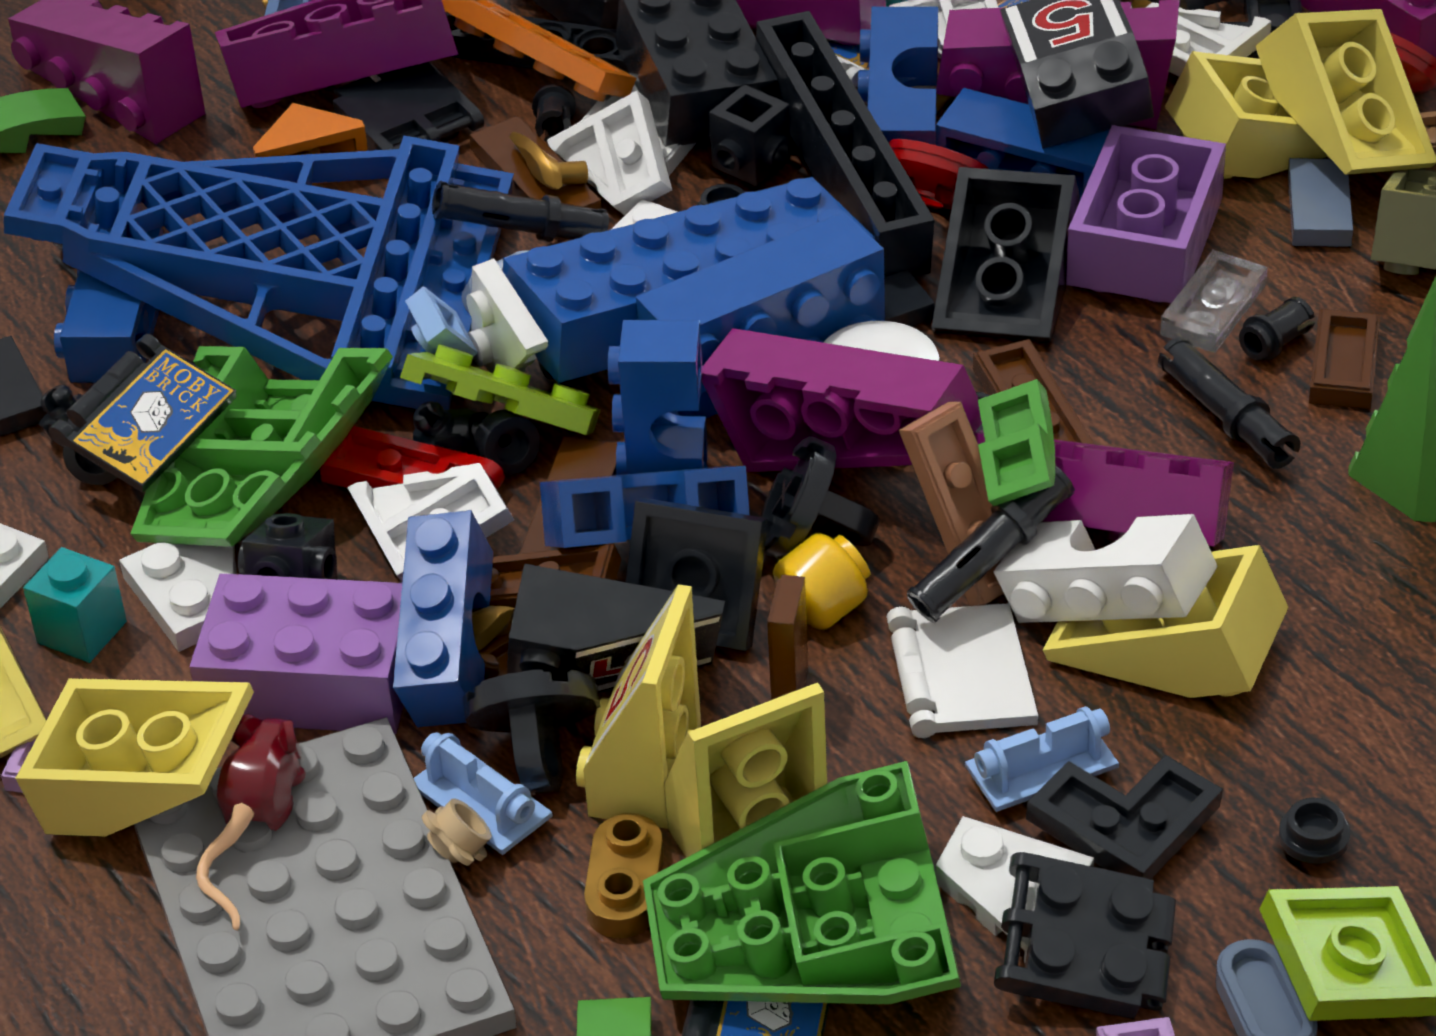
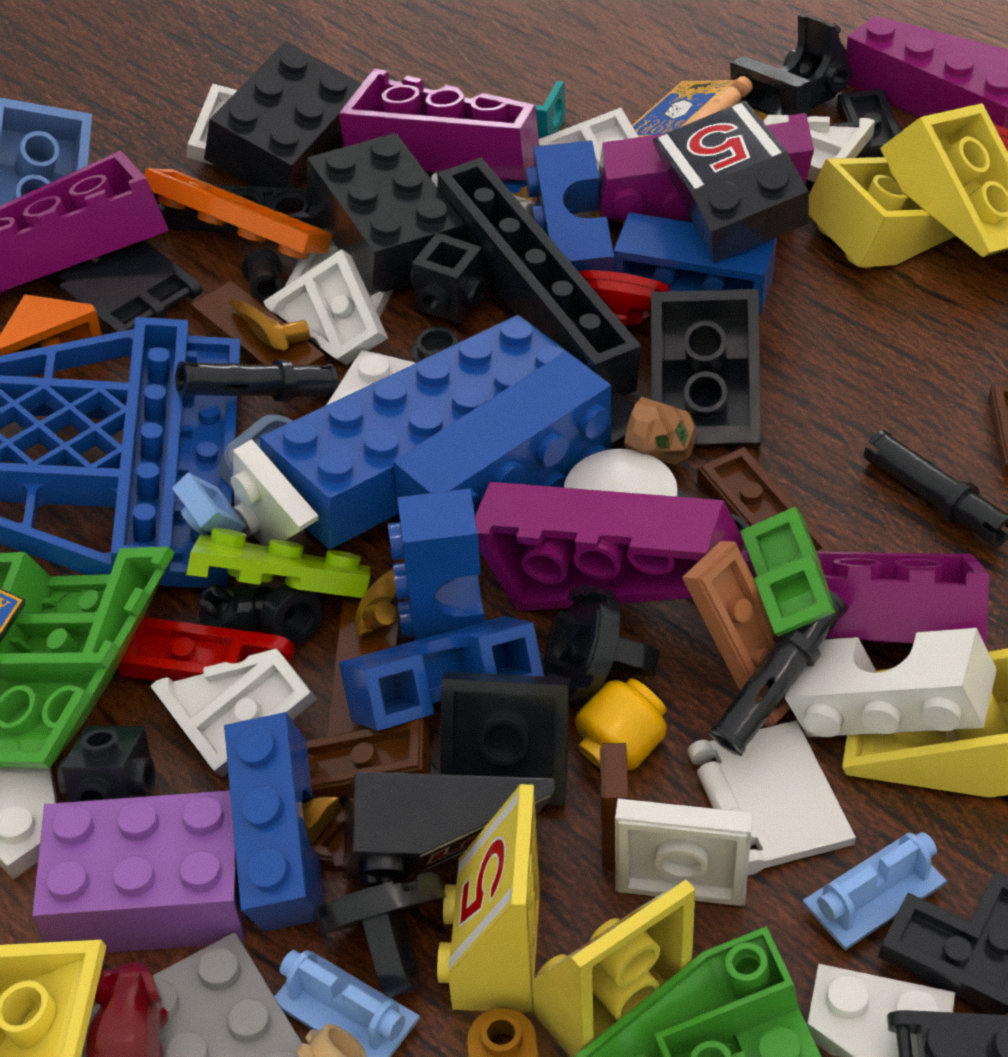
camera: 10 degrees left, 5 degrees up
(594, 444) = (377, 605): none -> pearl gold bar
(864, 688) = (675, 843): none -> white tile
(937, 309) = (661, 431): none -> medium nougat rock
(1145, 214) = (820, 315): medium lavender brick -> none
(1214, 300) = (897, 389): clear plate -> none
(1268, 333) = (953, 417): black pin -> none
(1319, 203) = (958, 283): sand blue tile -> none

